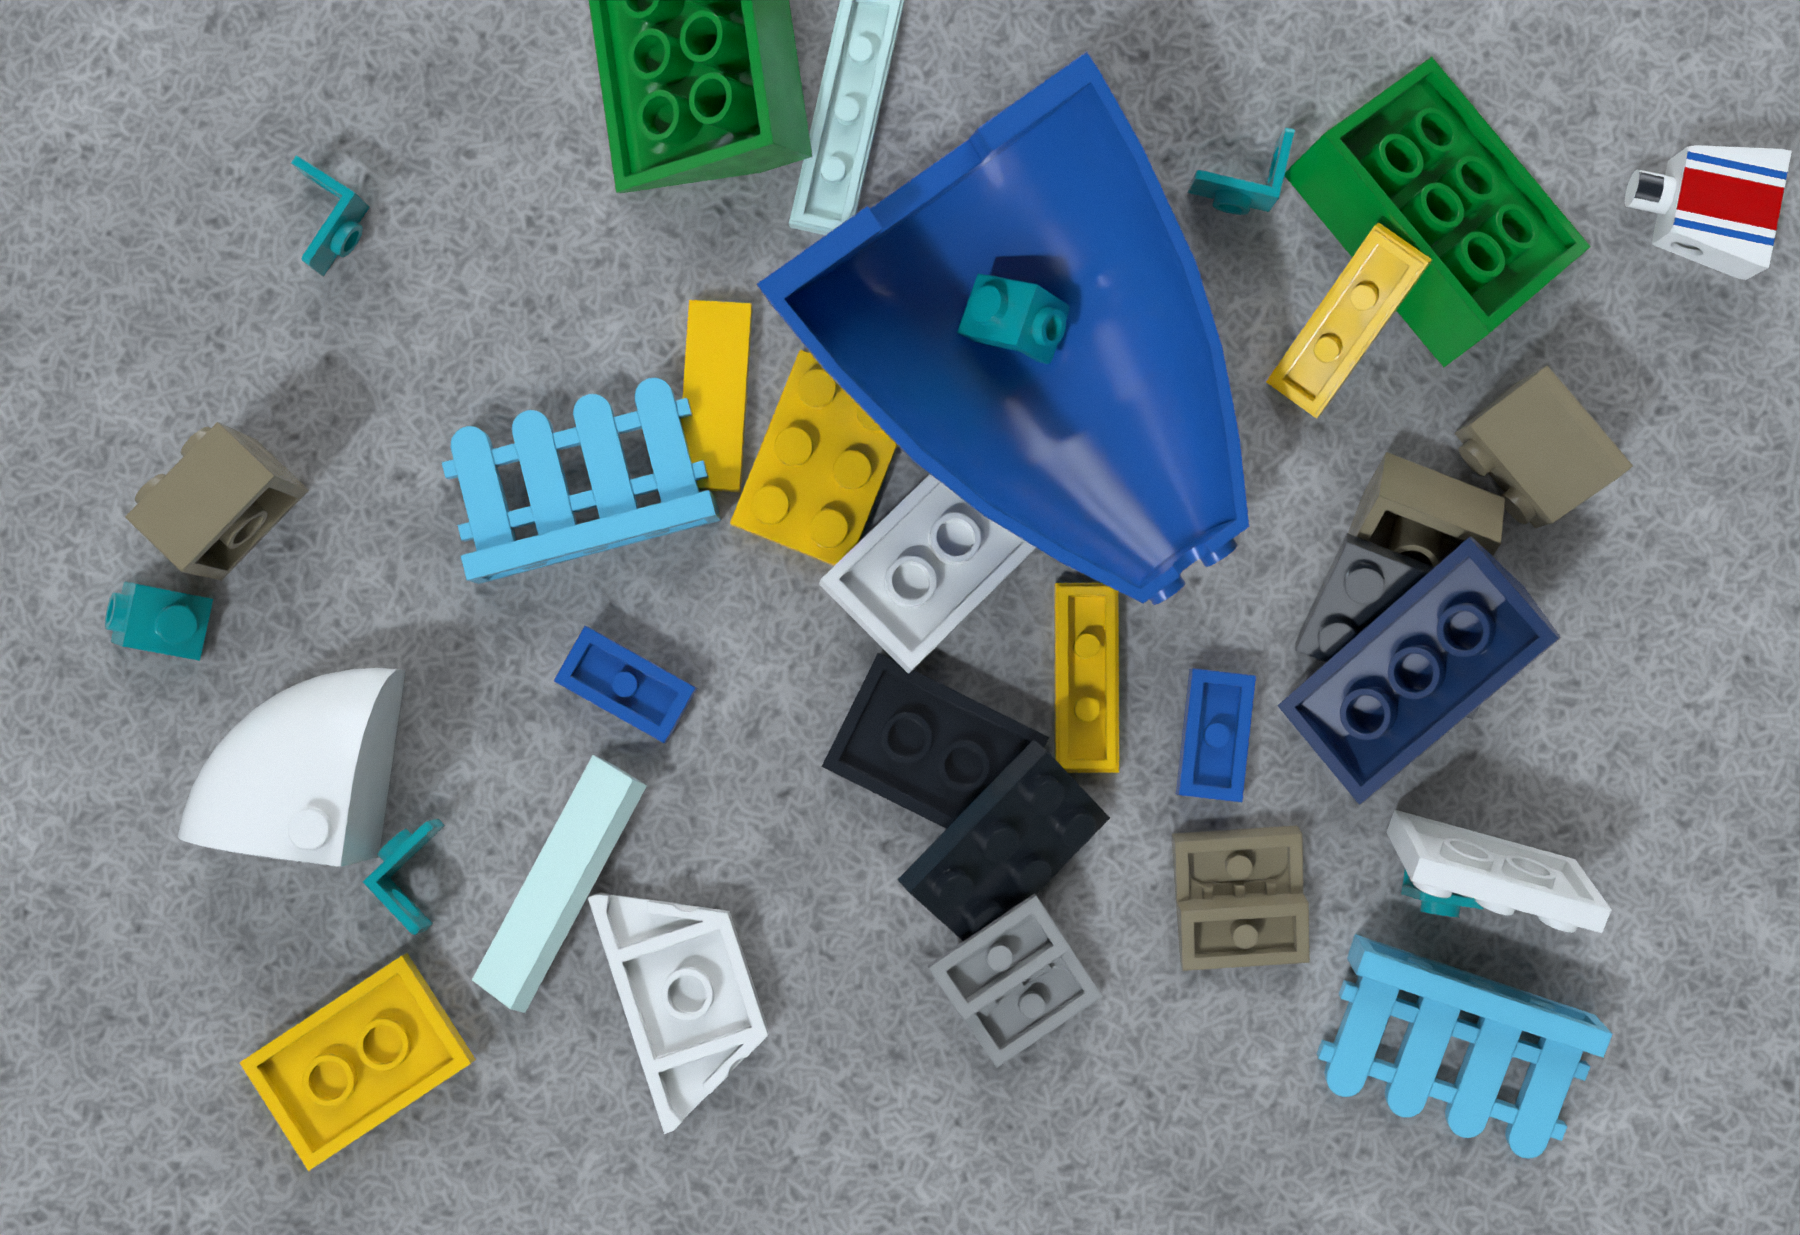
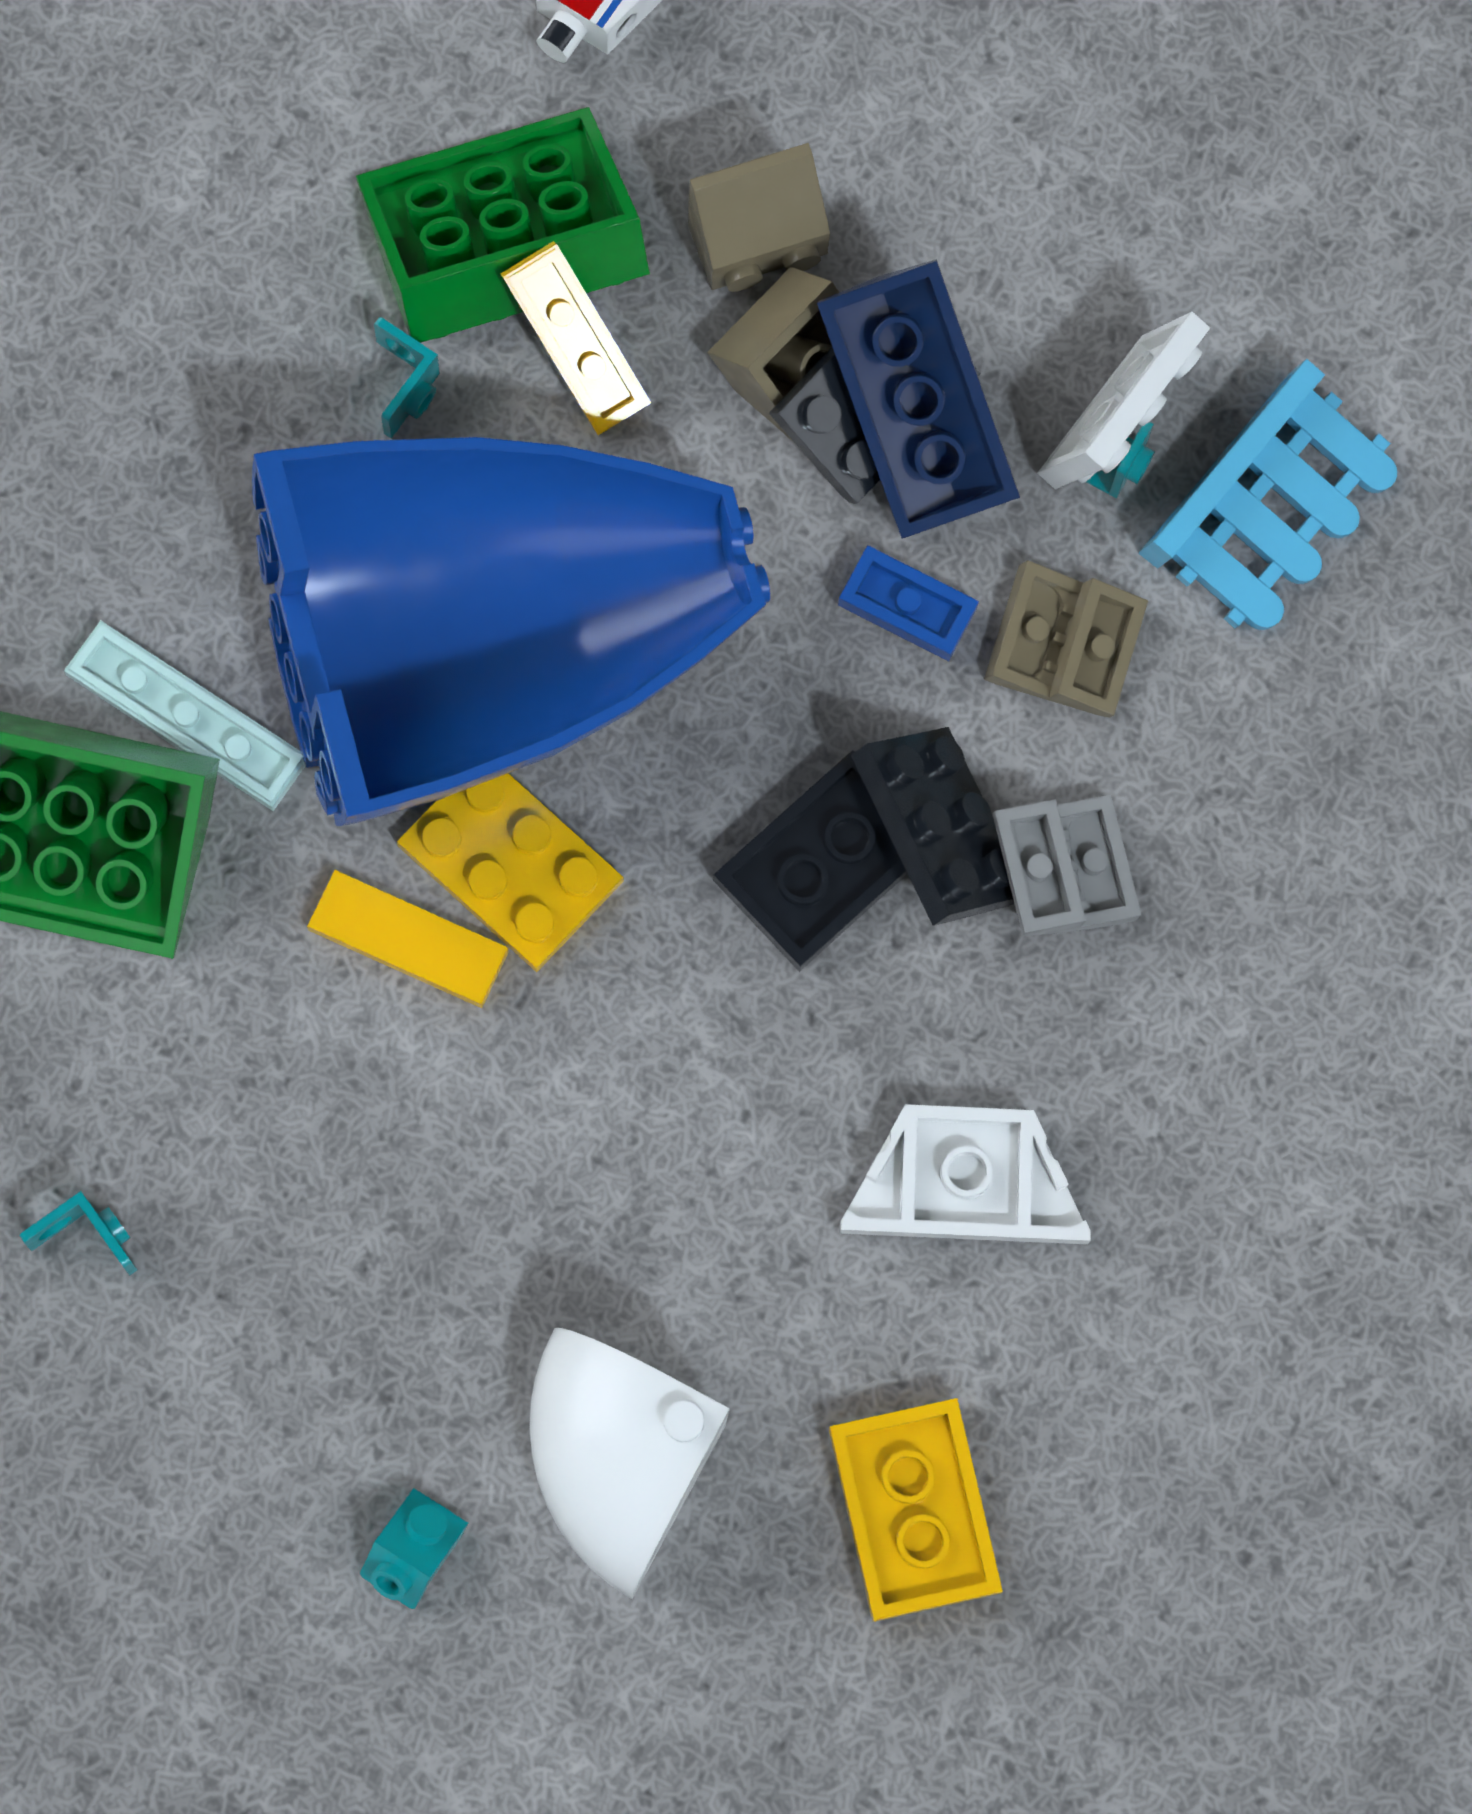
camera: 75 degrees left, 10 degrees down
(215, 502) = (327, 1429): dark tan brick -> none
(395, 855) = (730, 1395): teal bracket -> none
(551, 503) = (436, 1123): medium azure fence -> none
(558, 884) = (817, 1254): light aqua tile -> none
(625, 684) = (651, 1122): blue plate -> none
(923, 571) = (651, 799): white plate -> none
(1014, 317) = (449, 631): teal bracket -> none
(1086, 677) = (806, 697): yellow tile -> none

